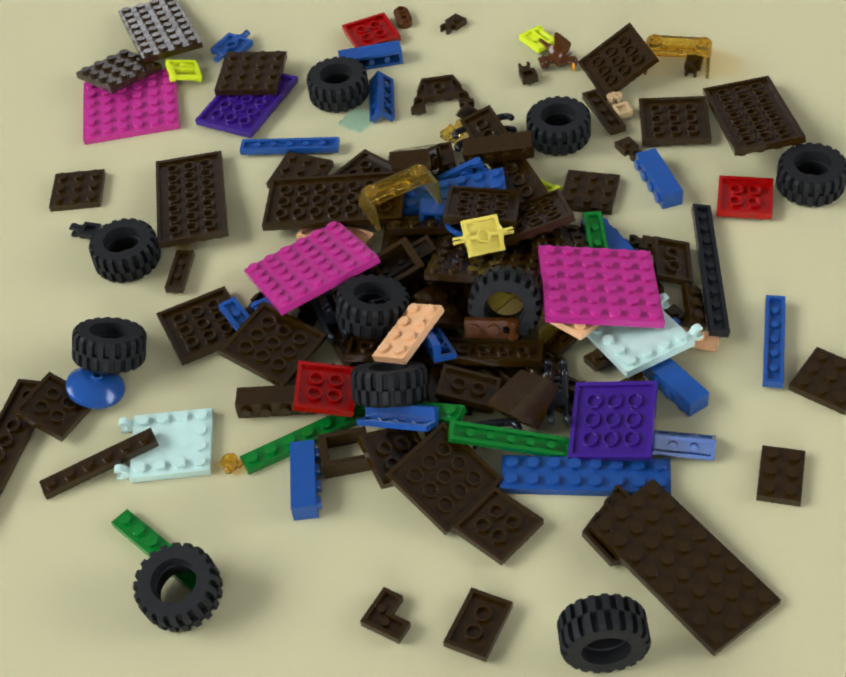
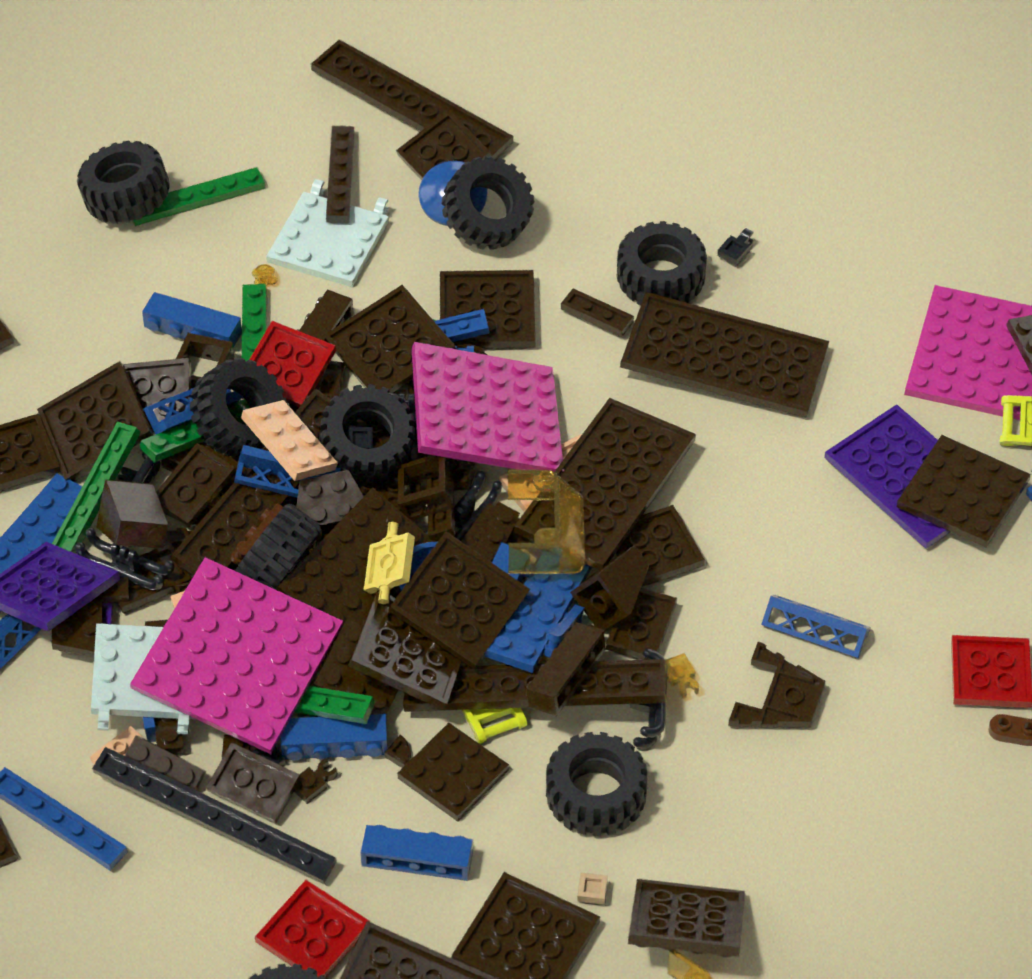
camera: 110 degrees right, 5 degrees up
(77, 190) = (831, 260): dark brown plate -> none
(284, 145) = (772, 489): blue plate -> none
(300, 166) = (710, 484): dark brown plate -> none
(337, 84) = (867, 549): black tyre -> none
(356, 120) = (791, 583): clear light blue piece -> none
(376, 55) = (923, 645): blue brick -> none
(454, 22) = (957, 788): dark brown plate -> none
(465, 110) = (711, 704): dark brown panel -> none
(527, 74) = (755, 814): dark brown plate -> none
(532, 37) = (837, 863): neon yellow plate -> none
(558, 53) = (771, 864): reddish brown animal -> none
(604, 112) = (614, 864): dark brown plate -> none
(614, 95) = (622, 890): tan plate -> none
(627, 146) = (513, 859): dark brown plate -> none
(678, 386) = (57, 688): blue brick -> none

